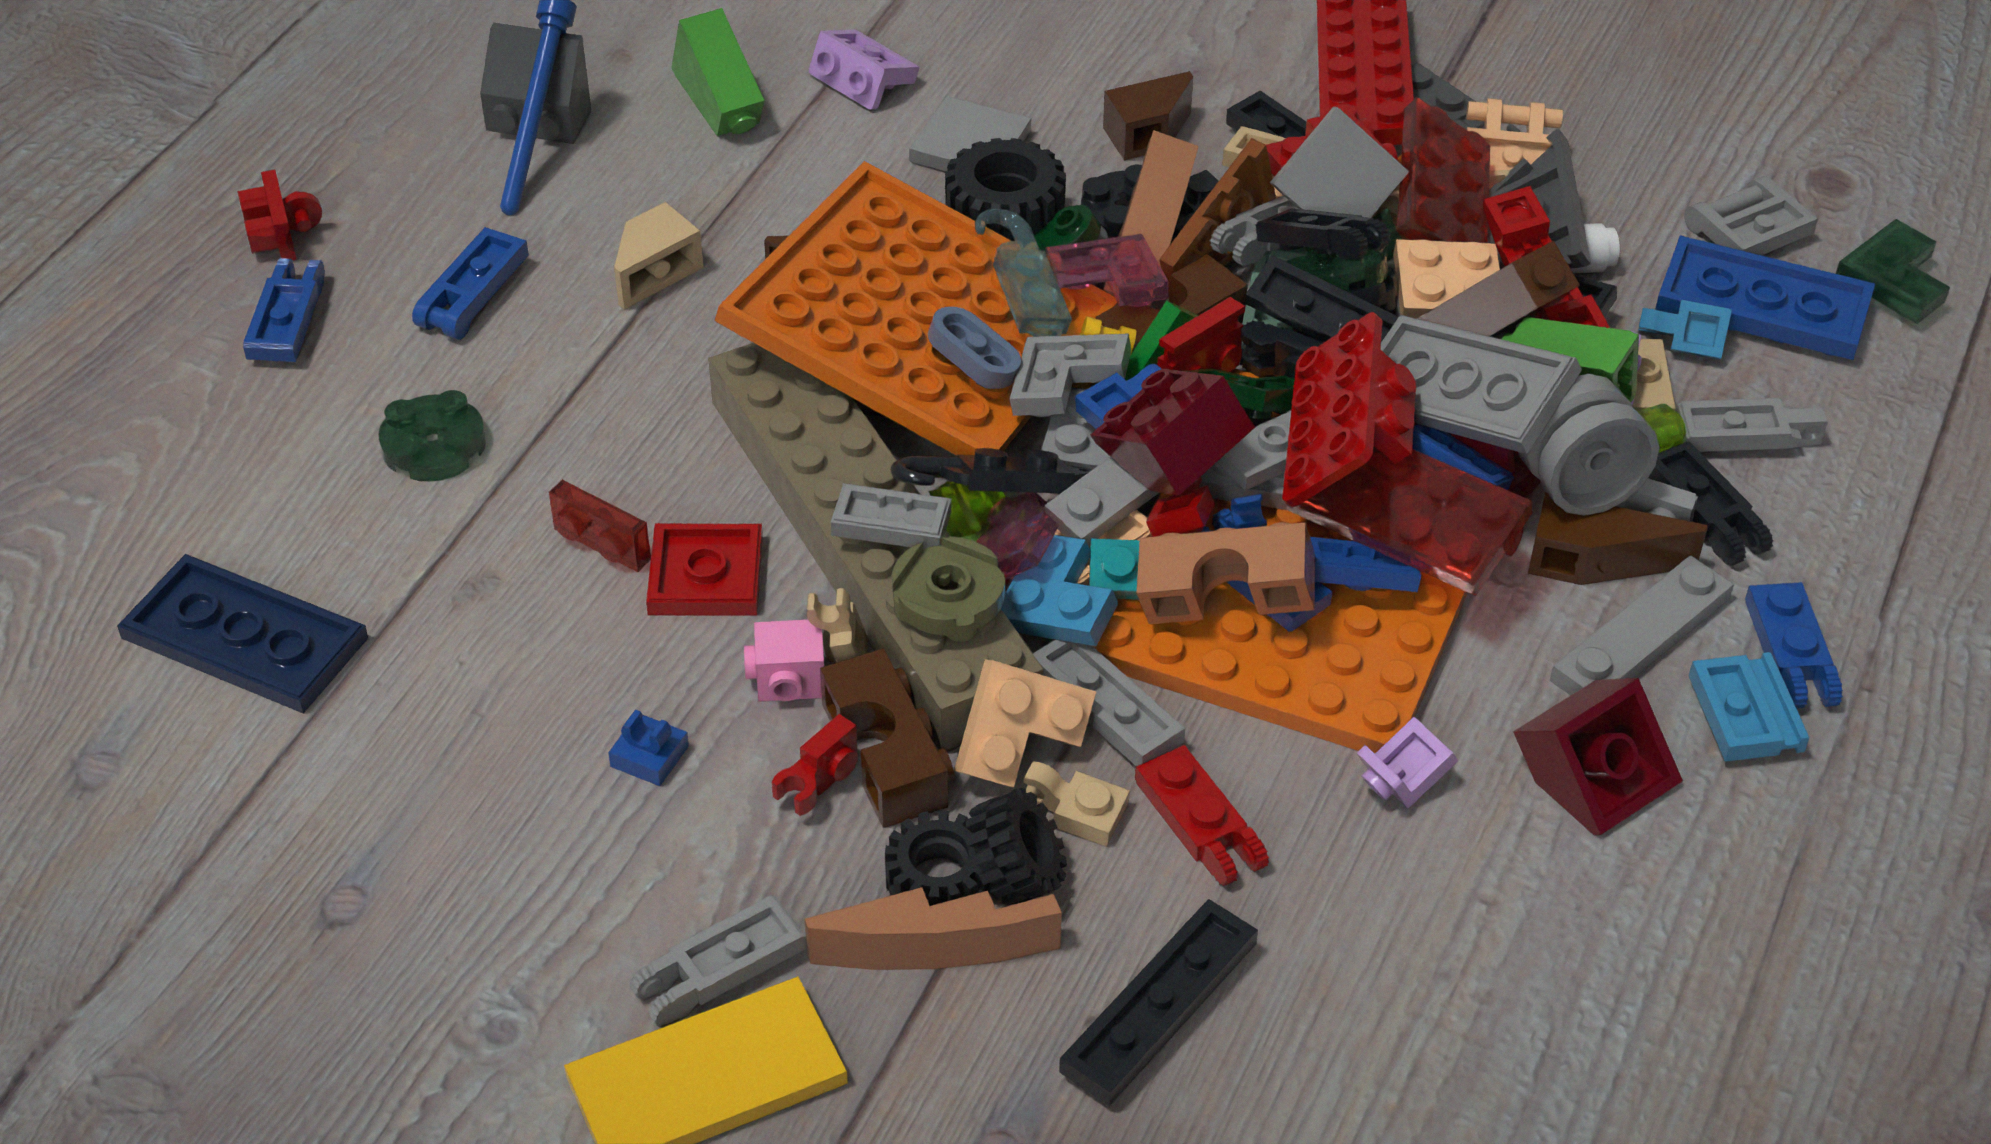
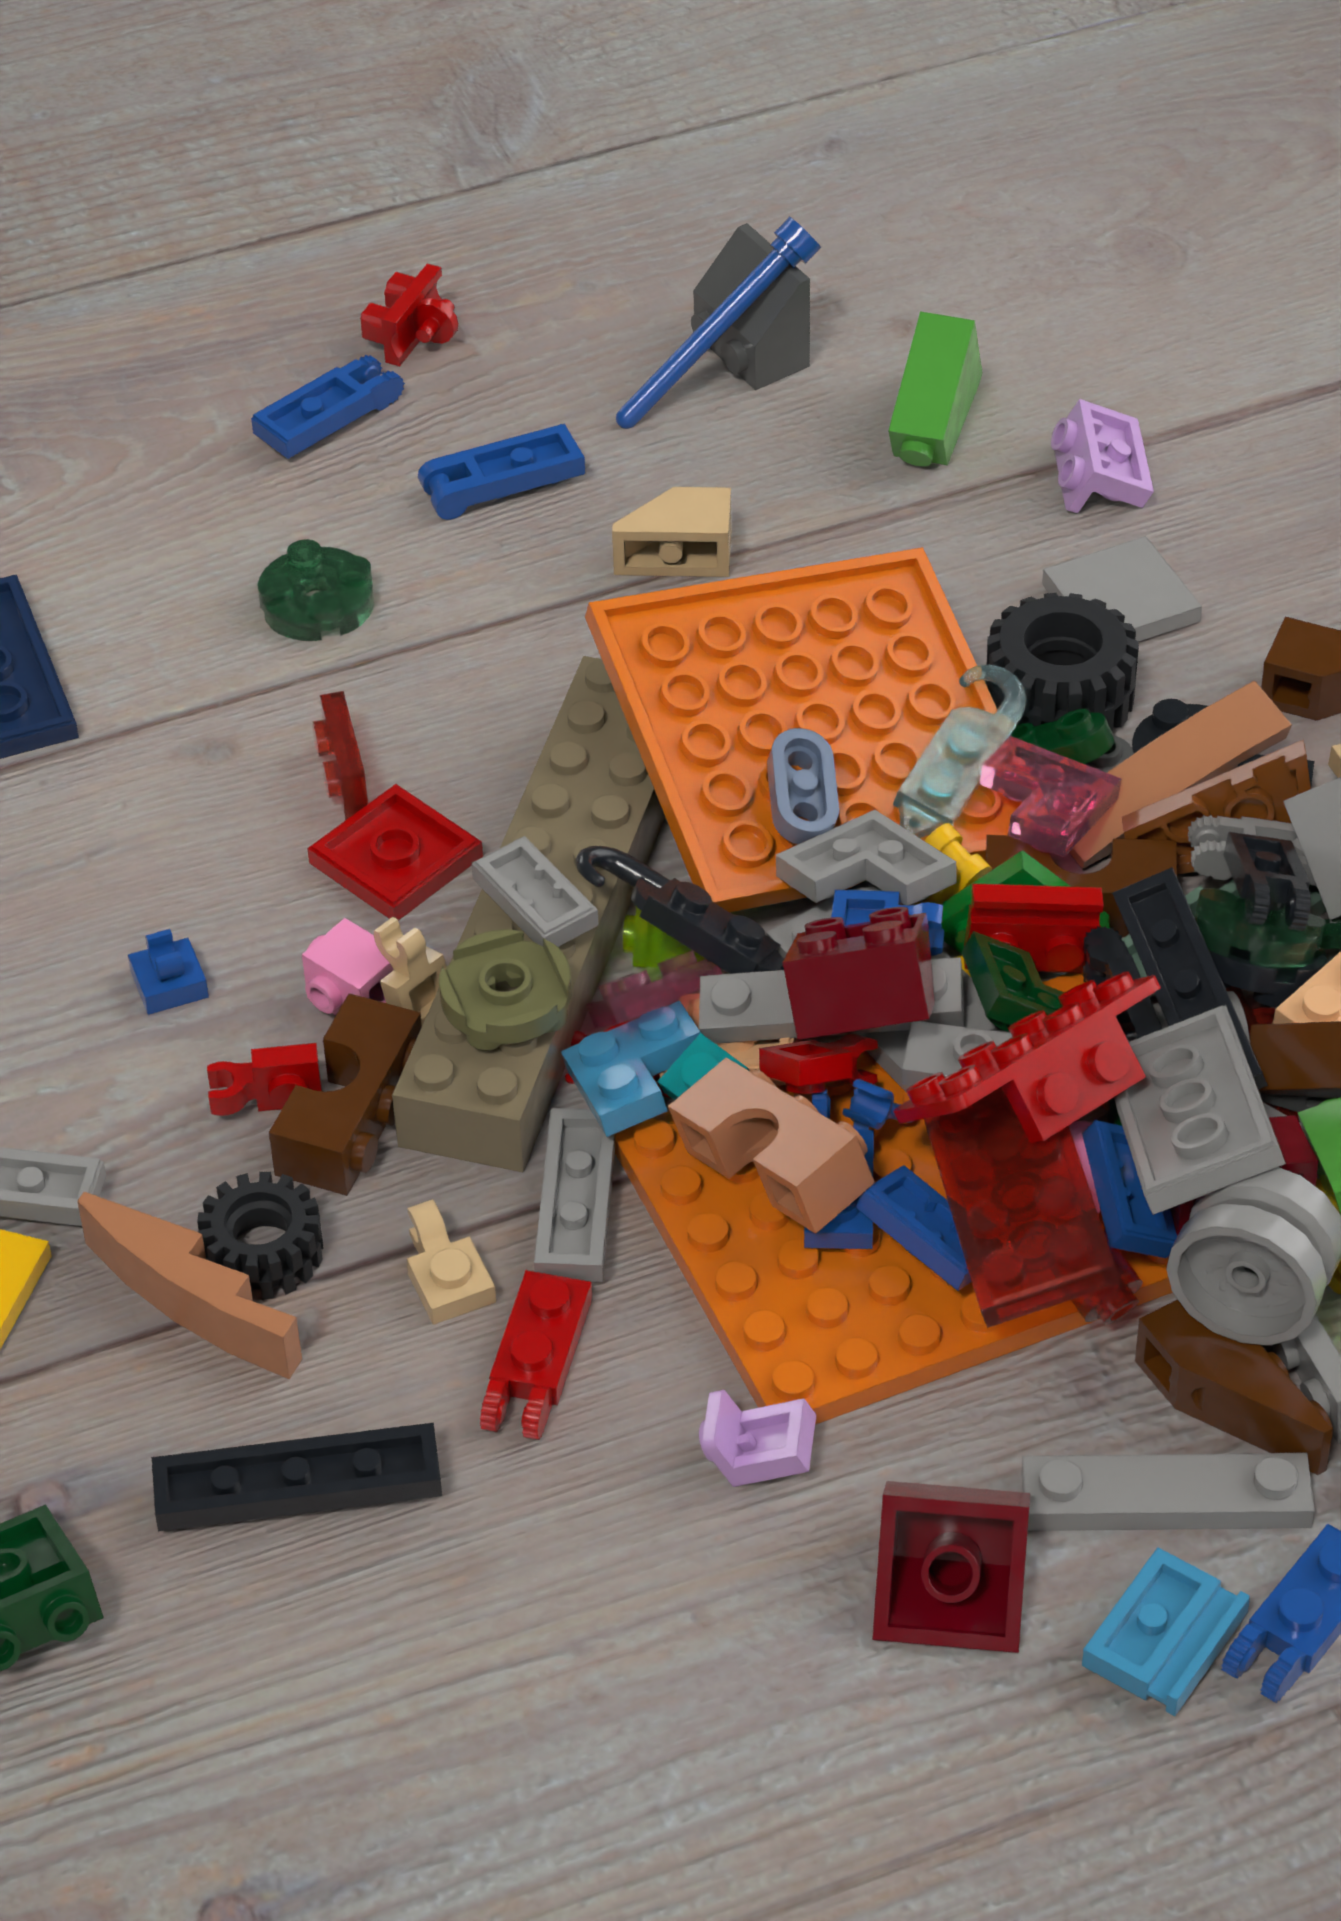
camera: 45 degrees right, 0 degrees up
(1011, 706) = (462, 1136): light nougat plate -> none
(1016, 847) = (285, 1249): black tyre -> none

